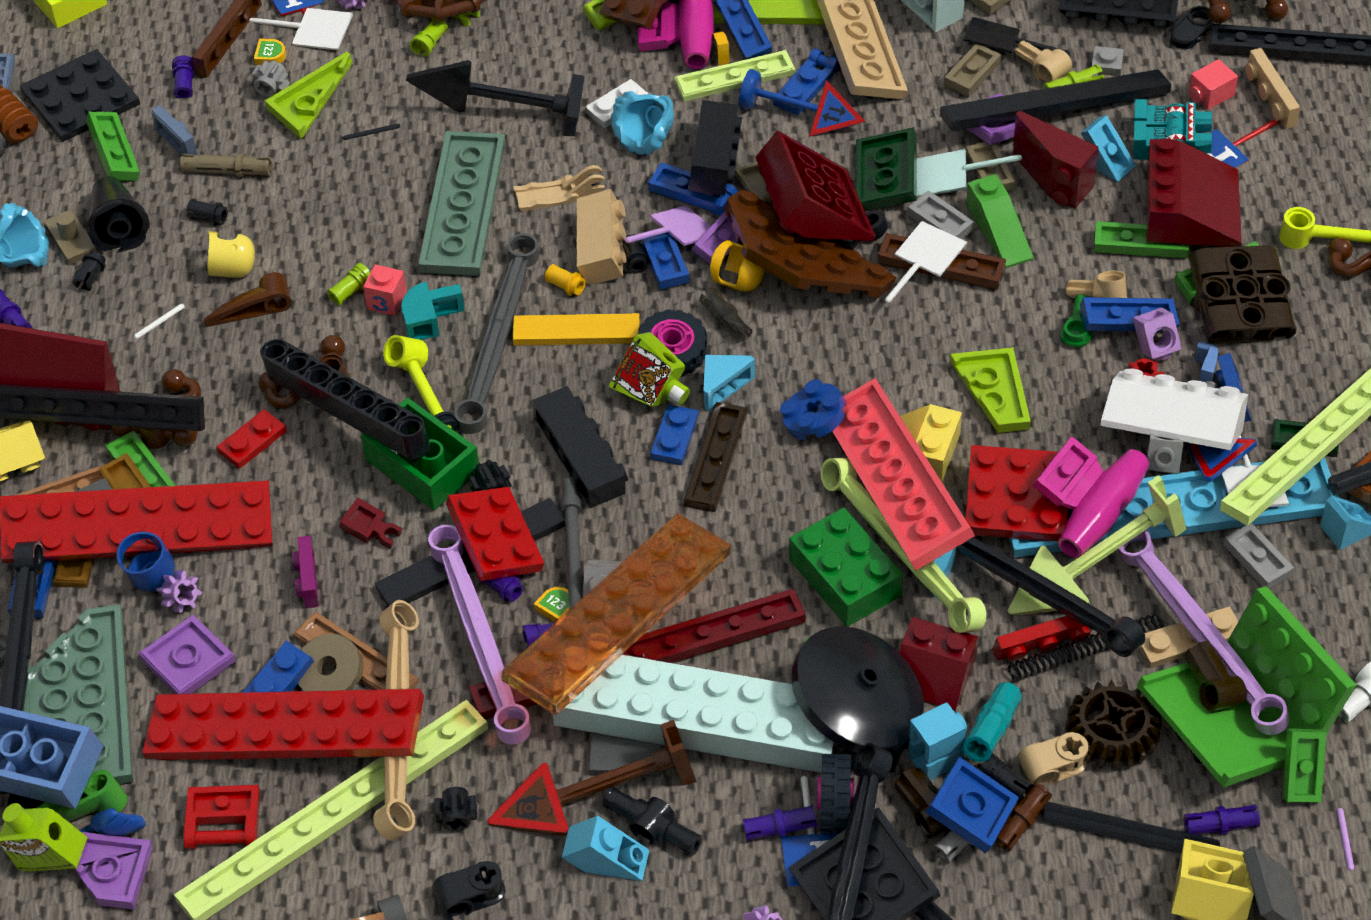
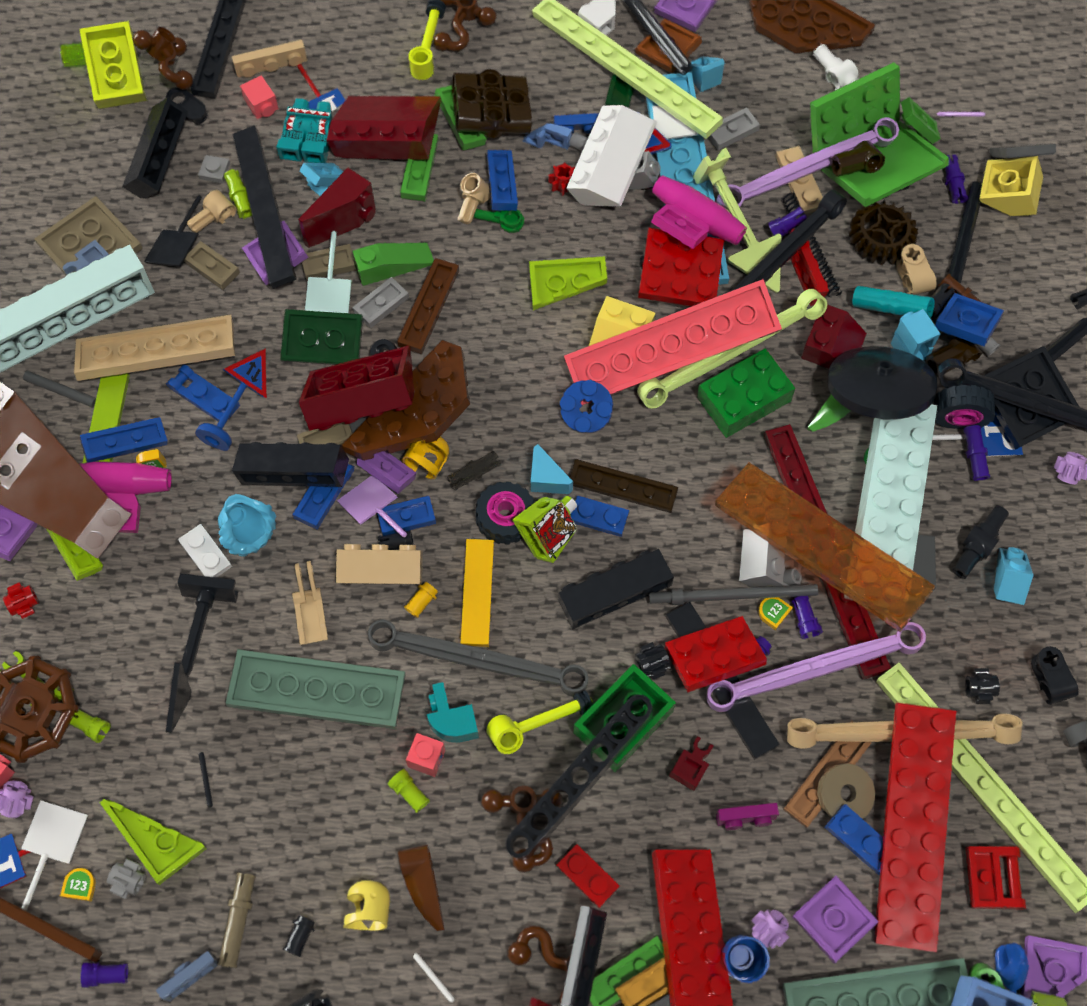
camera: 90 degrees left, 15 degrees up
(538, 804) = (968, 626): reddish brown piece -> none
(731, 75) = (184, 453): yellowish green tile -> none
(929, 250) = (422, 310): white piece -> none
(1106, 603) = (788, 222): none -> dark purple pin
(1146, 327) = (525, 162): lavender brick -> none

